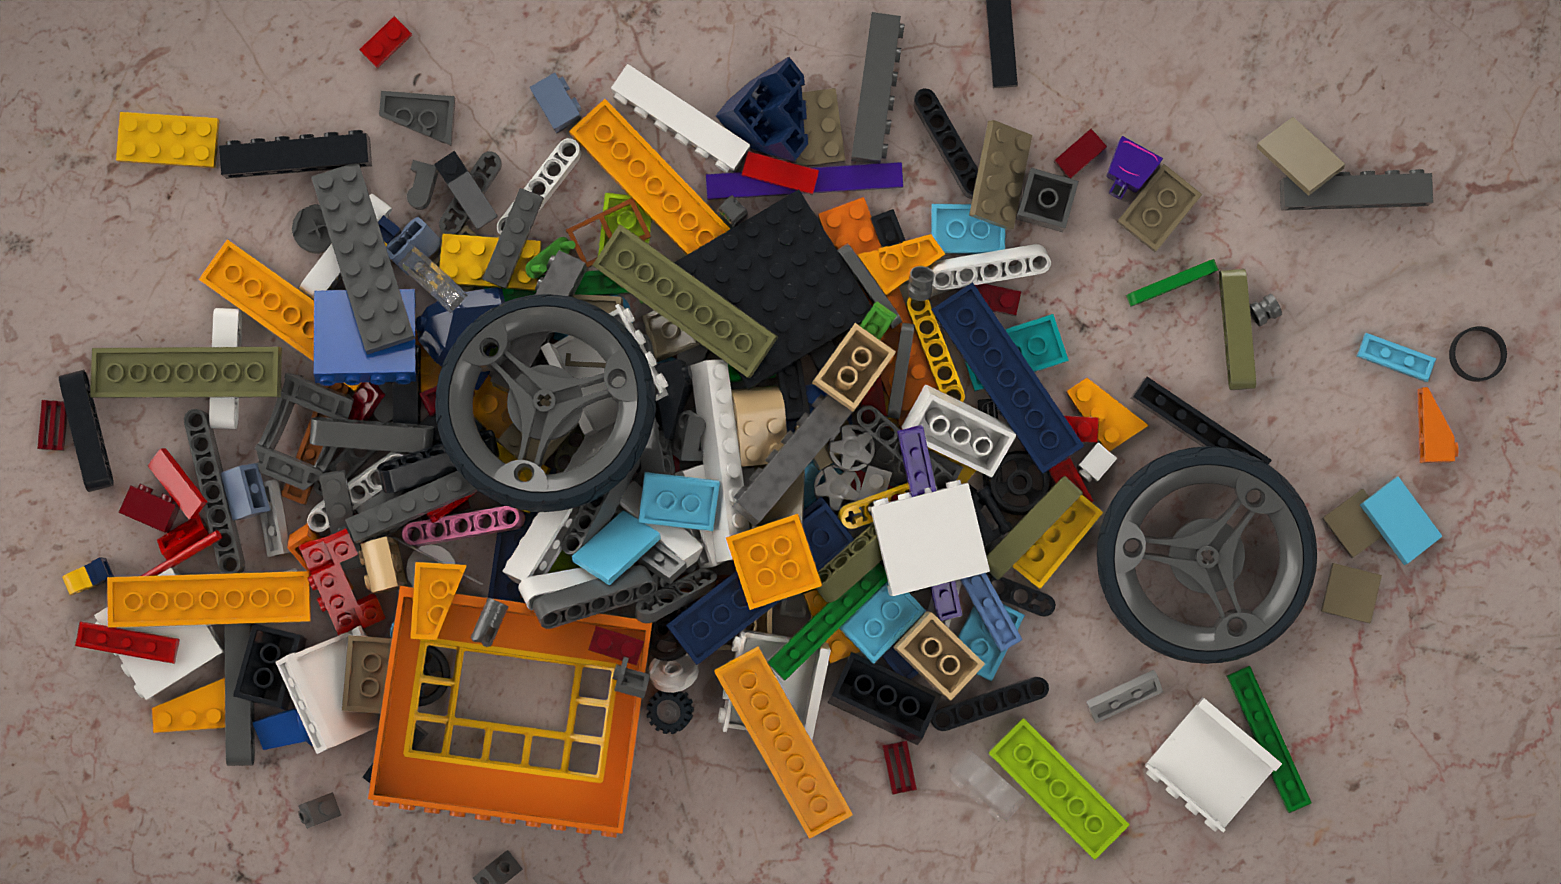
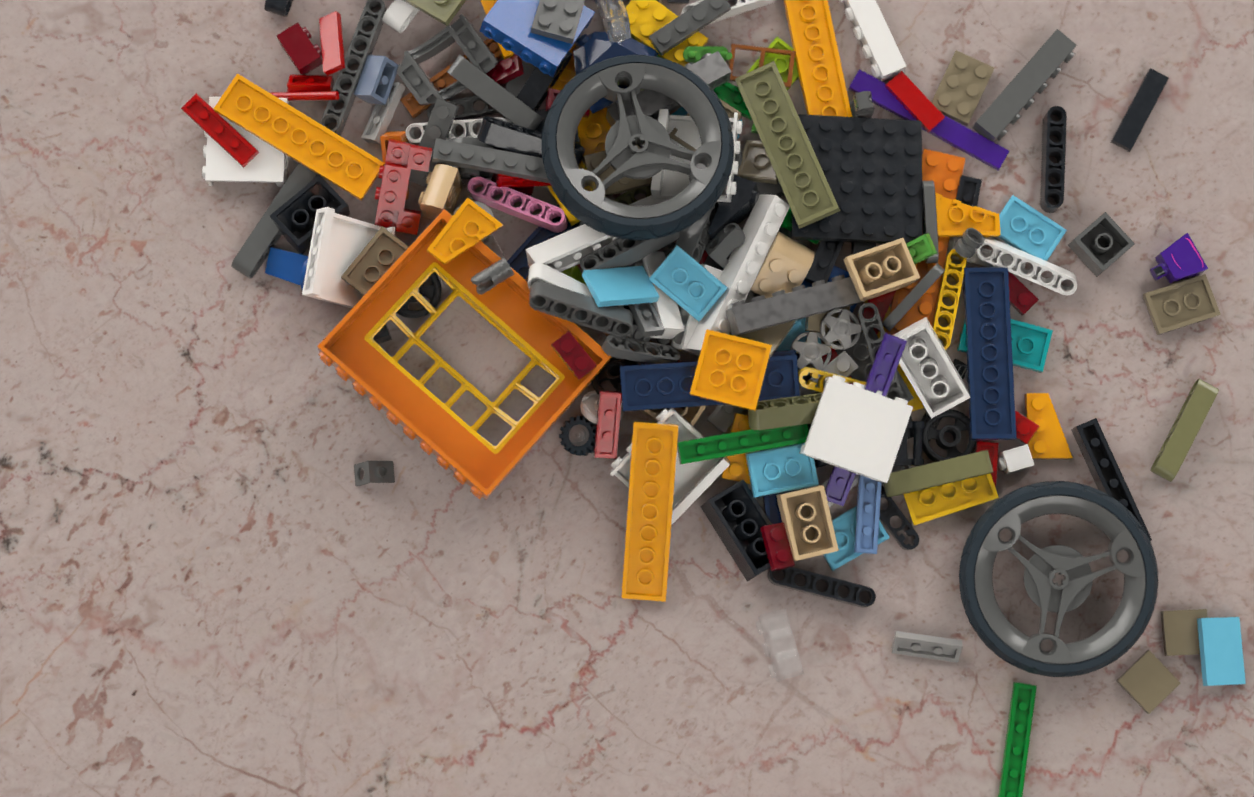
camera: 25 degrees right, 5 degrees down
(88, 576) = (223, 68): leg -> none
(192, 711) = (232, 212): light orange wing -> none
(318, 810) = (275, 342): dark grey bracket -> none
(629, 680) = (566, 386): dark grey bracket -> none
(690, 685) = (608, 424): none -> tile
(770, 112) = (936, 53): dark blue brick -> none
(903, 788) = (729, 572): dark red tile -> none
(925, 696) = (777, 546): none -> dark red plate
(1000, 175) = (1078, 204): dark tan plate -> none
(1058, 788) = (832, 683): lime plate -> none
(1080, 153) = (1147, 228): dark red tile -> none
(1172, 282) = (1156, 364): green beam -> none
(1211, 765) = (961, 741): white panel -> none
(1265, 310) = (1215, 429): dark grey wheel -> none

